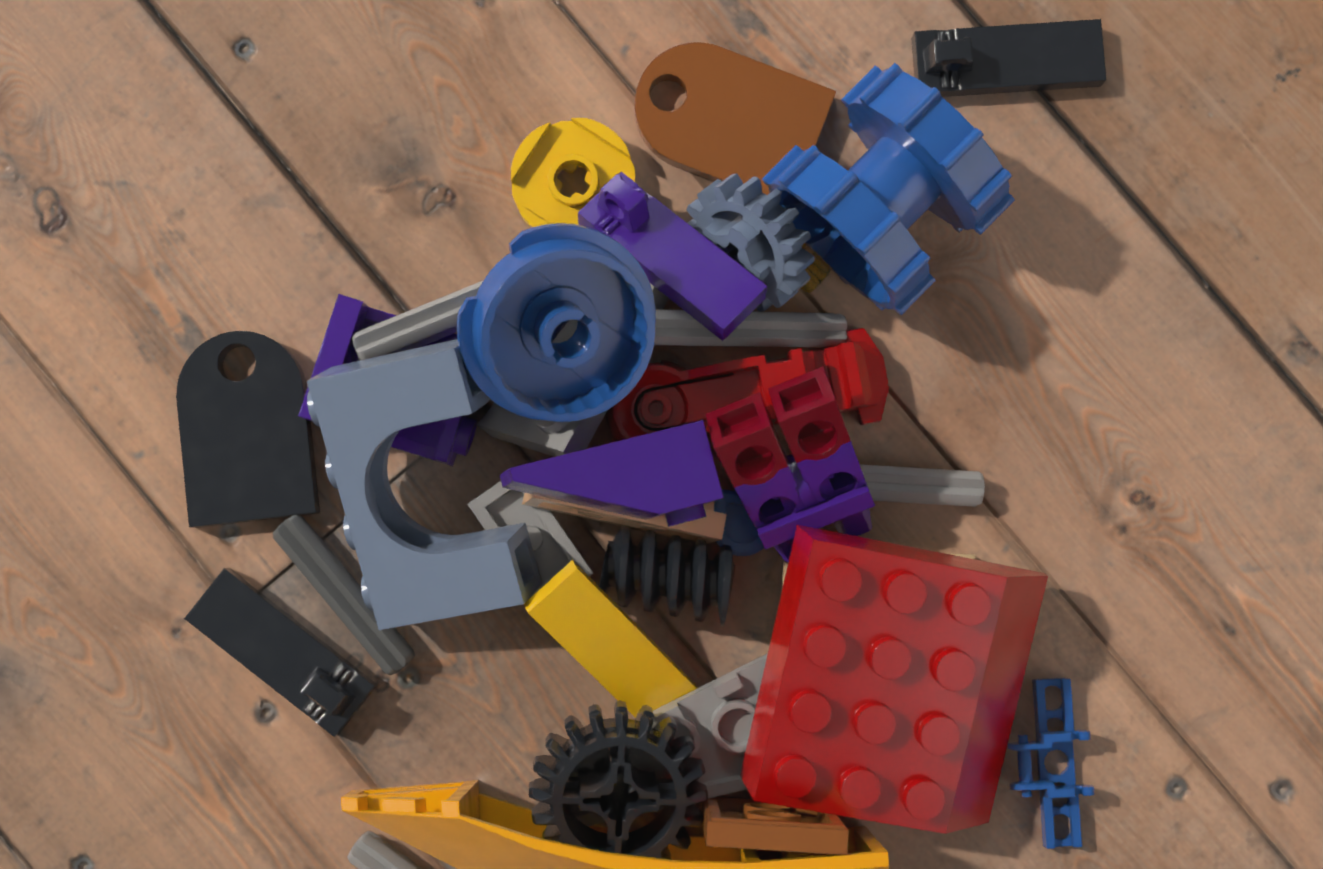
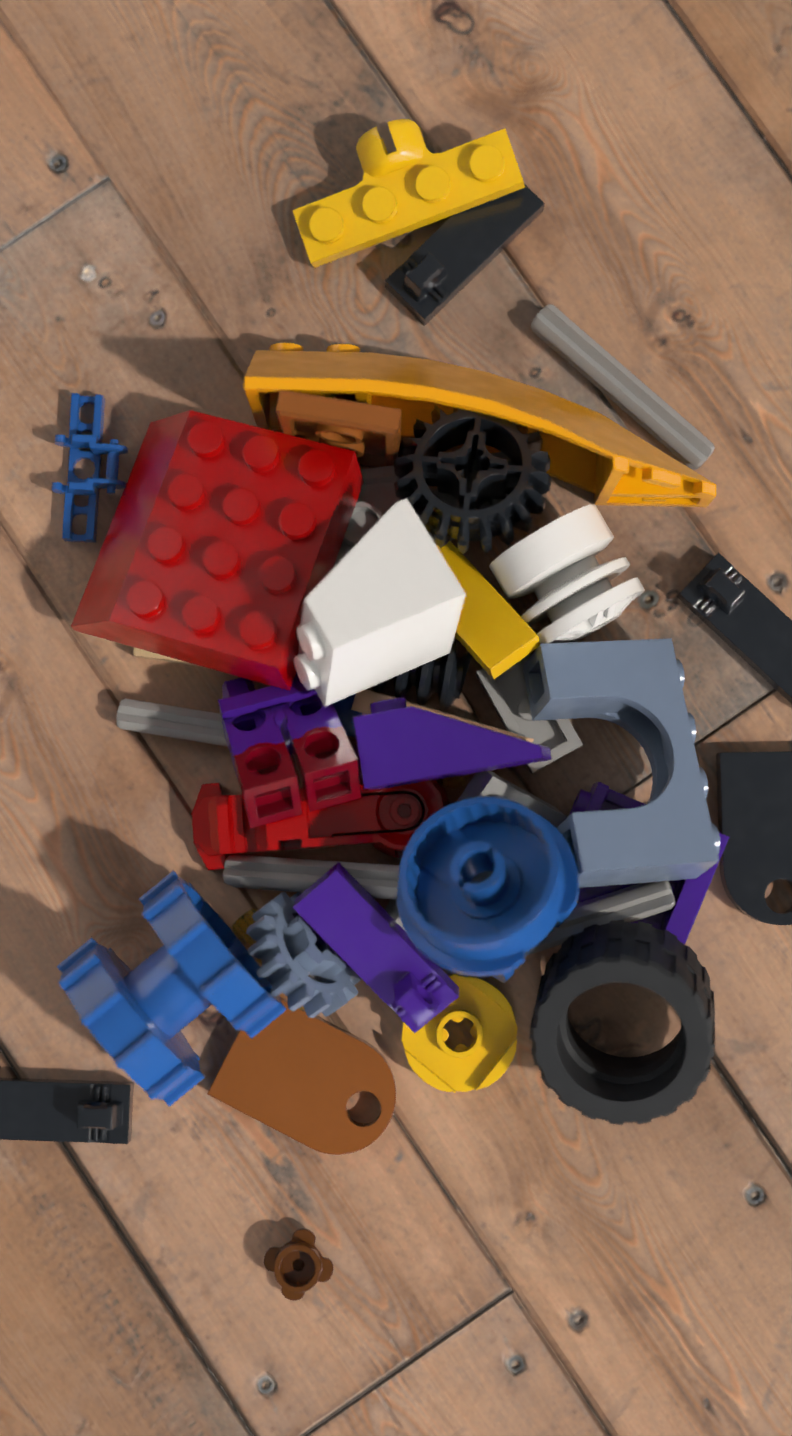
camera: 170 degrees left, 0 degrees up
(341, 593) = (703, 679): dark grey axle -> none
(404, 140) = (612, 1085): none -> black tyre
(500, 685) = (566, 577): none -> white wheel
(707, 619) = (379, 610): none -> white slope

